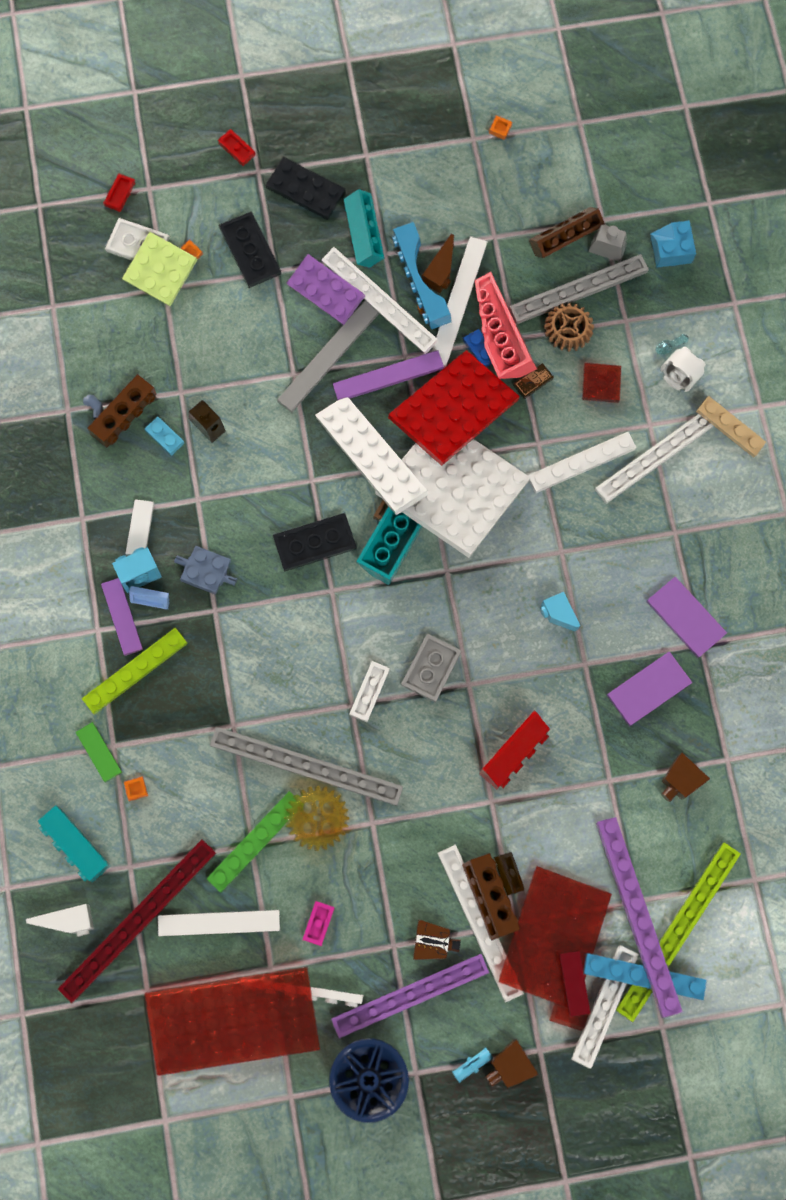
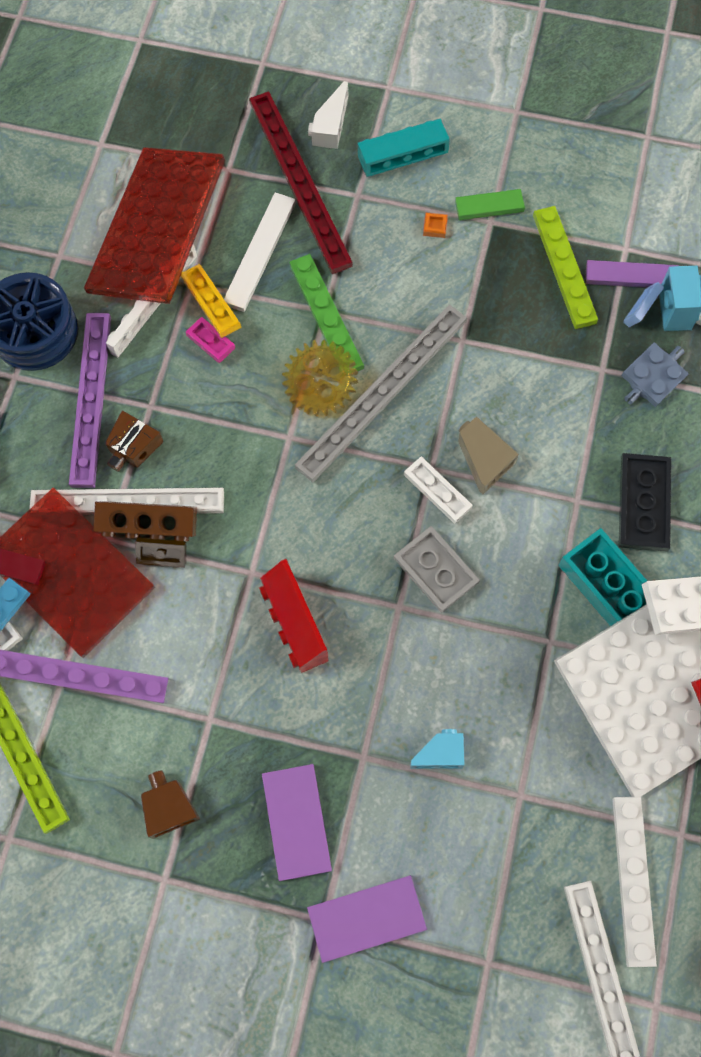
camera: 120 degrees right, 5 degrees down
(284, 939) = (210, 301): none -> yellow tile
(326, 667) = (485, 453): none -> dark tan slope

